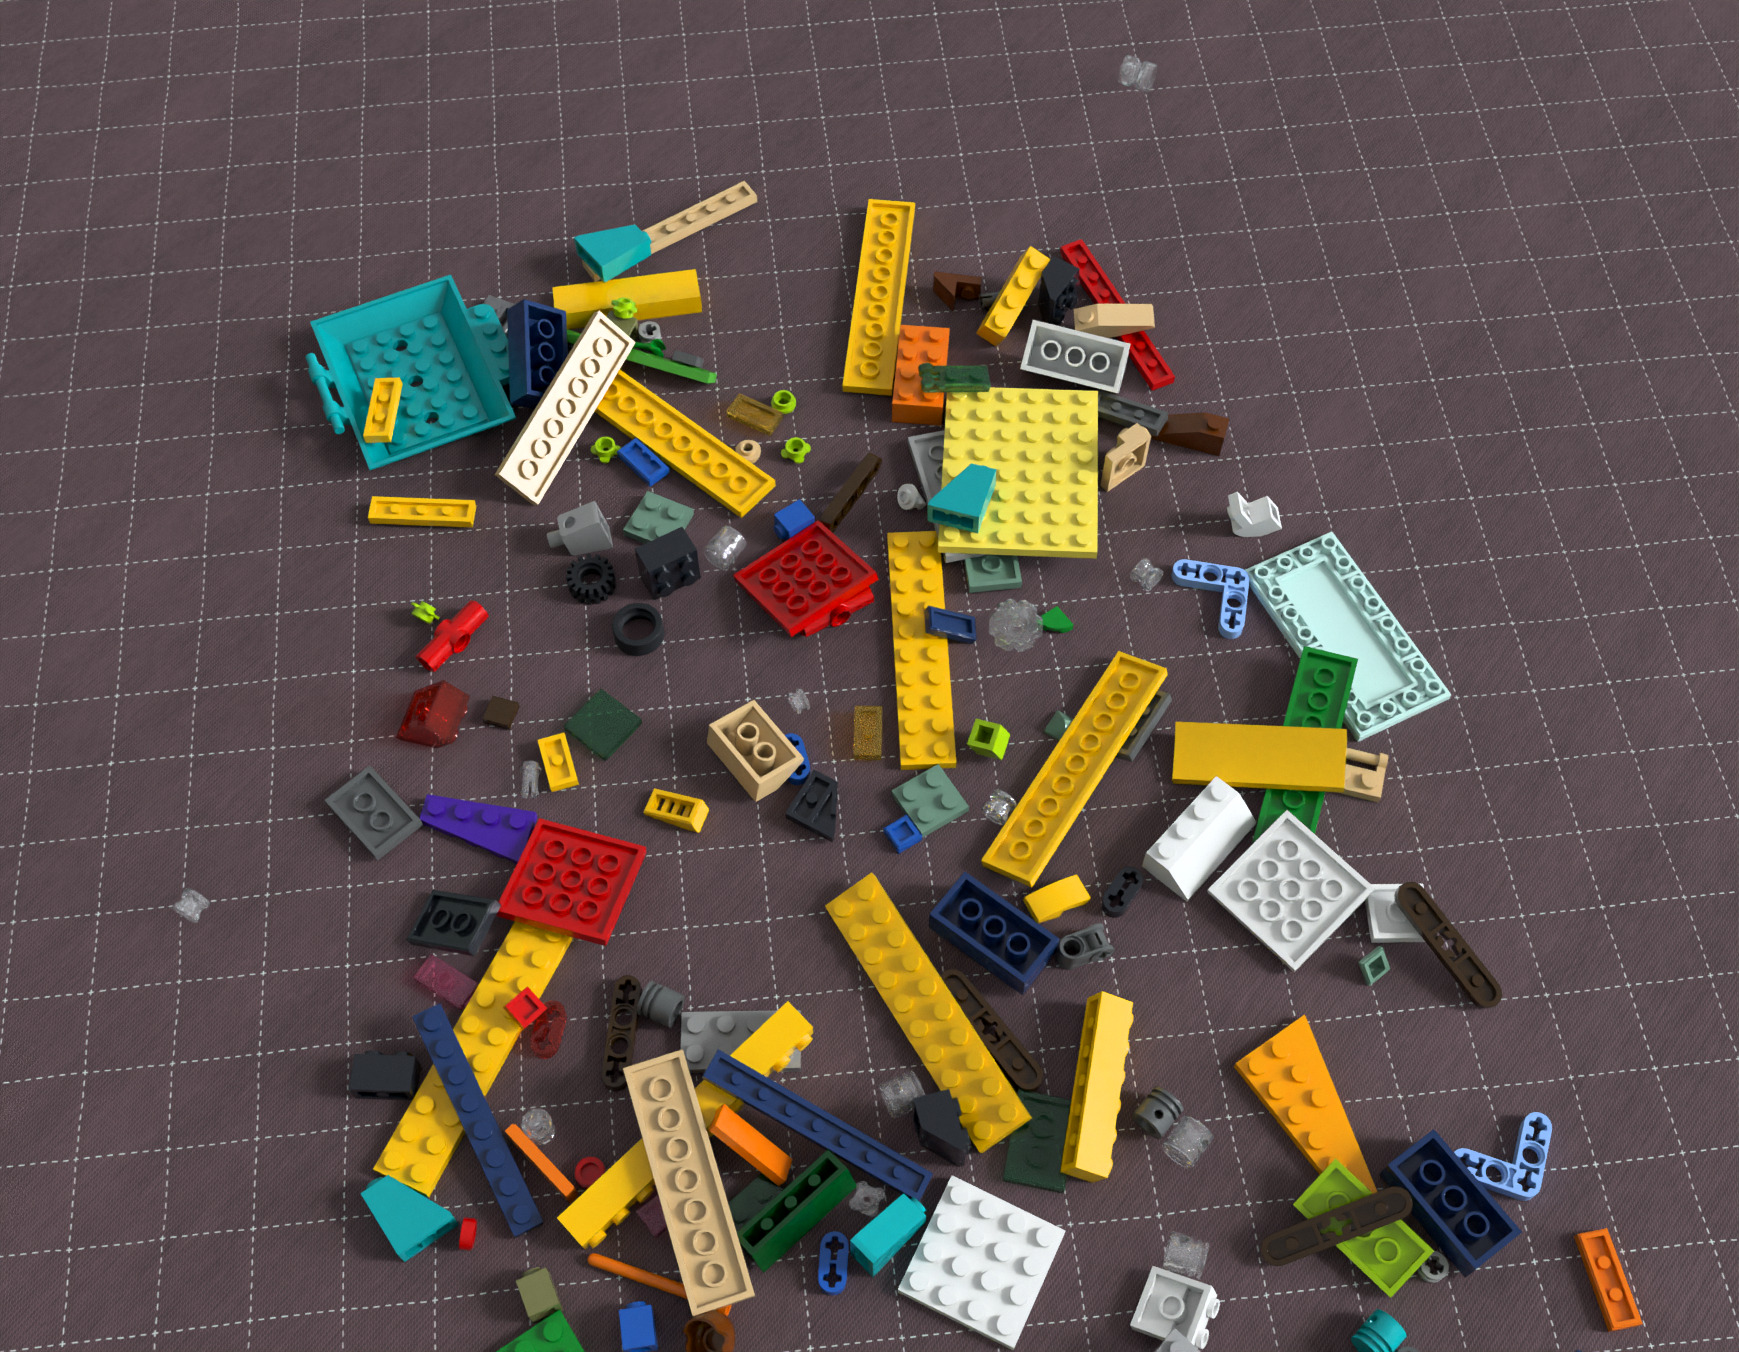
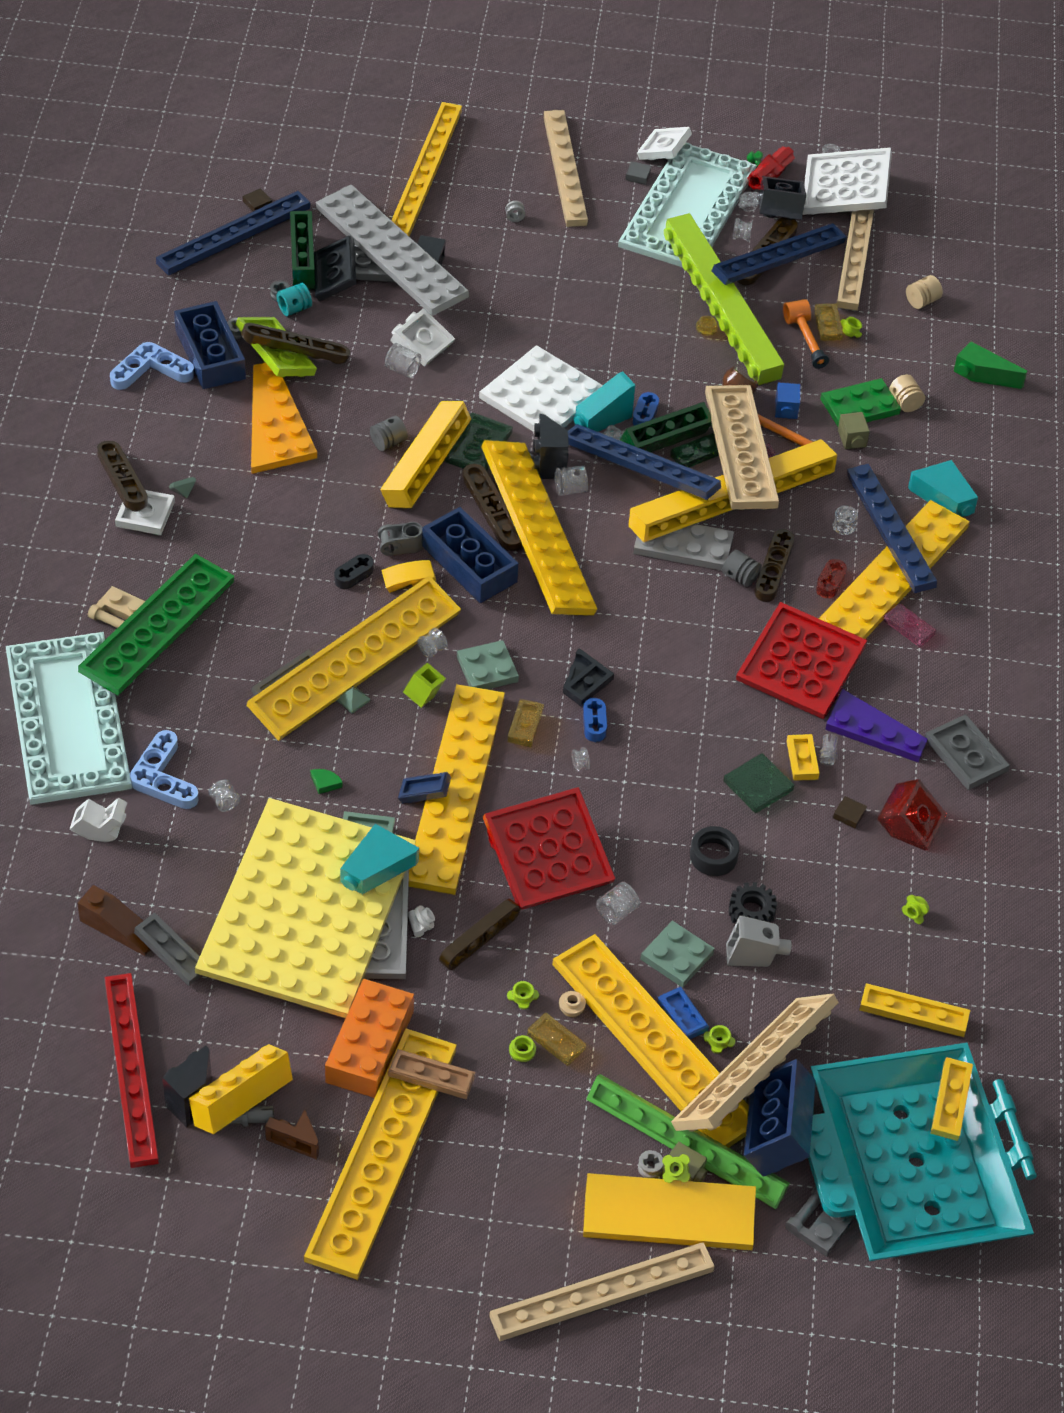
camera: 170 degrees left, 10 degrees down
(385, 1076) = (959, 569): black brick -> none
(452, 636) = (890, 881): red piece -> none
(453, 922) = (901, 648): black tile -> none
(468, 1234) = (901, 472): red tile -> none
(525, 1008) = (848, 579): plate -> none
(542, 1163) = (844, 496): orange tile -> none
(588, 1171) = (809, 492): red tile -> none
(613, 250) = (677, 1252): teal slope -> none
(655, 346) = (651, 1143): green hand -> none
(668, 563) = (677, 888): black brick -> none
(688, 359) = (615, 1114): dark grey tile -> none
(692, 817) = (695, 704): yellow slope -> none
(751, 1144) = (700, 462): orange tile -> none
(754, 750) = (631, 718): tan slope -> none
(792, 520) = (544, 914): blue brick -> none
(855, 351) = (431, 1074): none -> medium nougat tile
(902, 834) = (519, 648): blue tile -> none
(954, 378) = (342, 996): clear green plate -> none
(1015, 625) = (364, 772): clear plant -> none
(1075, 356) = (206, 1002): white slope -> none
(1114, 319) = (146, 1039): tan slope -> none
(1126, 457) = (196, 892): tan plate -> none
(1187, 1142) = (373, 412): clear piece -> none
(1200, 839) = (278, 591): white slope -> none
(1260, 756) = (201, 620): yellow arch -> none
(1290, 890) = (223, 533): white plate -> none
(1608, 1280) = (122, 301): orange tile -> none

